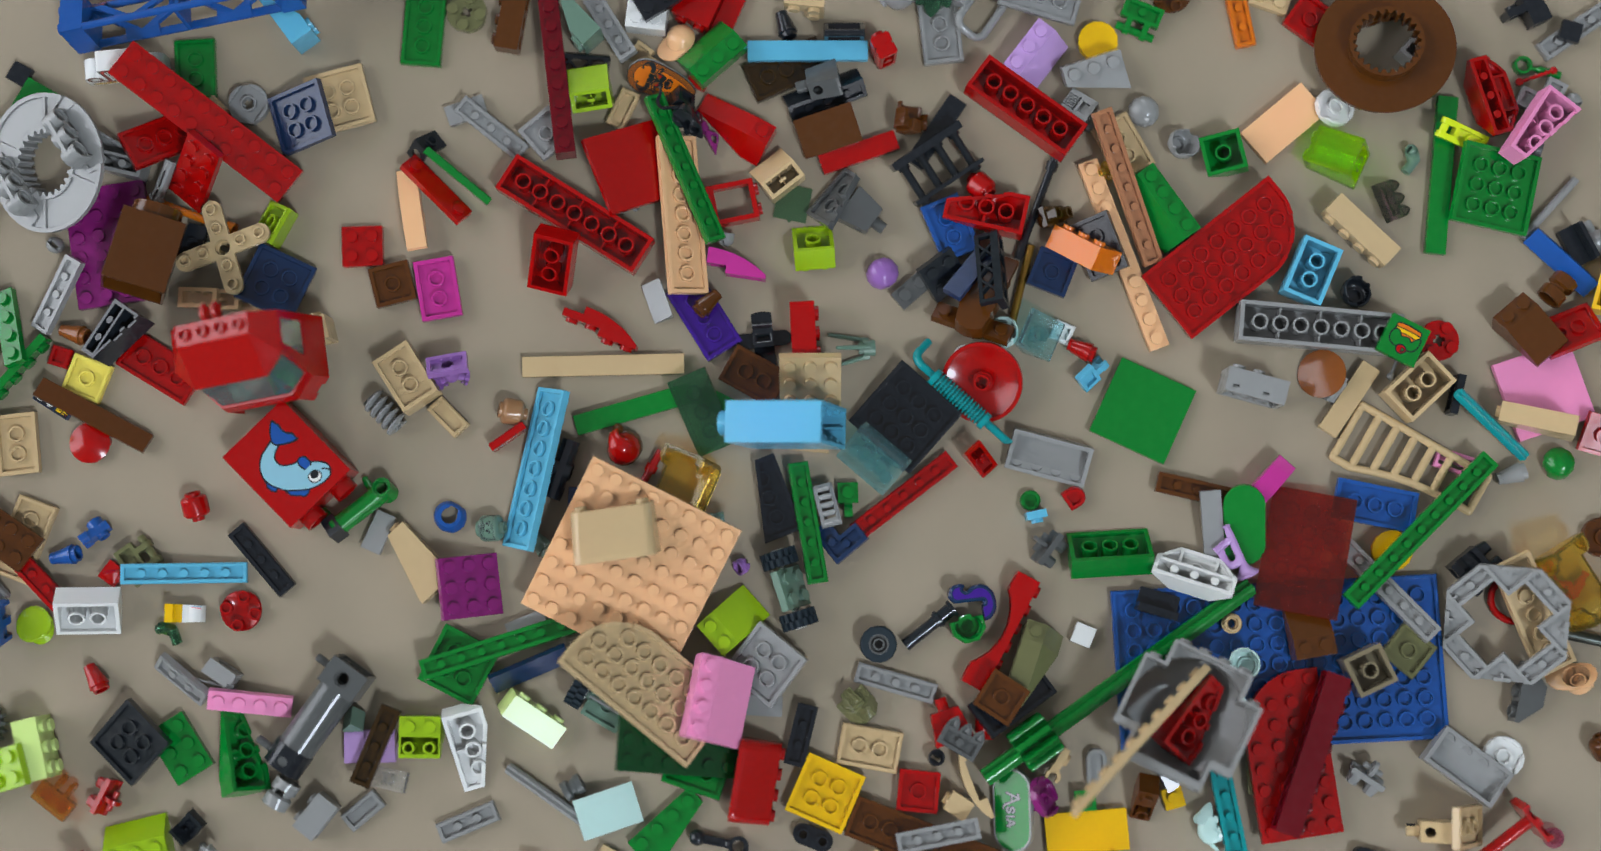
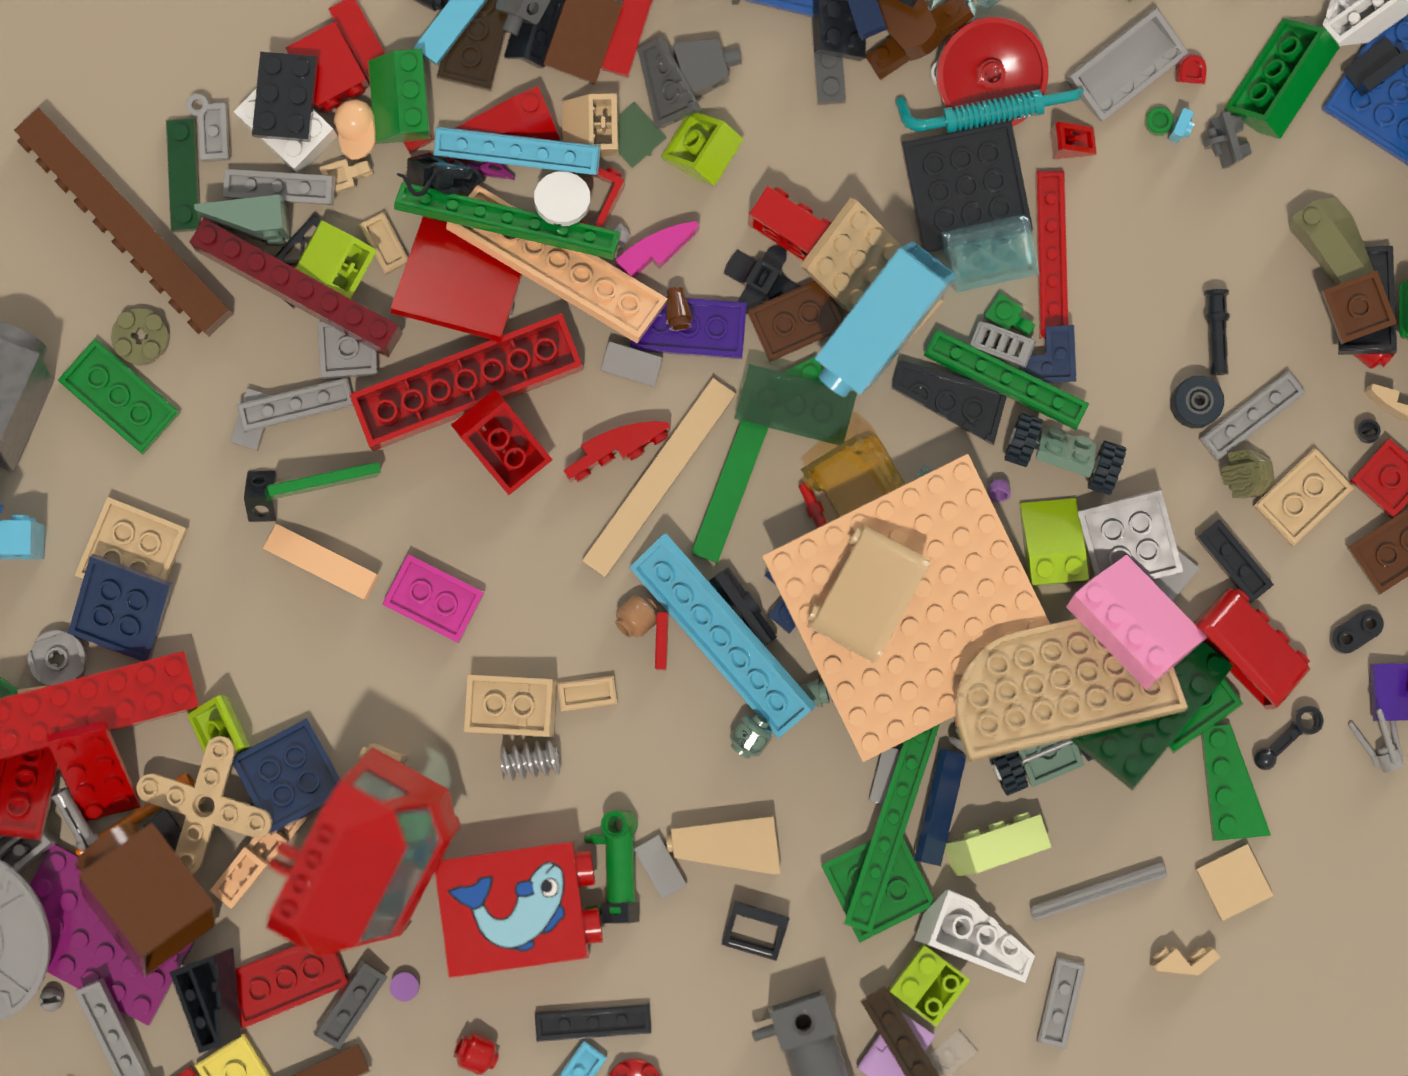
camera: 55 degrees left, 0 degrees up
(75, 333) = (175, 1047): dark orange cone -> none
(172, 414) = (350, 1004): none -> dark grey plate
(205, 437) = (404, 986): none -> medium lavender tile
(354, 720) = (854, 1049): sand green slope -> none
(362, 246) = (320, 649): red plate -> none
(391, 609) = (760, 915): none -> black tile
(392, 284) = (389, 645): reddish brown plate -> none
(435, 189) = (318, 518): red plate -> none
(448, 368) = (536, 649): medium lavender piece -> none
(453, 527) = (702, 789): blue piece -> none
(469, 586) = (799, 807): magenta plate -> none
(573, 787) = (1109, 855): dark grey wheel -> none
(607, 811) = (1164, 836): light aqua tile -> none
(623, 446) = (768, 520): red piece -> none
(646, 75) = (375, 180): shield -> none
(720, 189) = (562, 198): none -> white tile
(730, 143) = (517, 150): none -> medium azure tile
(825, 793) = (1318, 581): yellow plate -> none
(865, 347) = (856, 173): sand green plant -> none
(882, 273) = (787, 94): medium lavender hair -> none
(943, 715) = (1341, 390): red torso -> none
(961, 740) = (1373, 387): dark grey plate -> none
(968, 628) = (1252, 290): green hair -> none
(975, 593) = (1218, 255): animal -> none
(1020, 594) = (1256, 207): red arch -> none
(1083, 634) = (1349, 173): white tile -> none

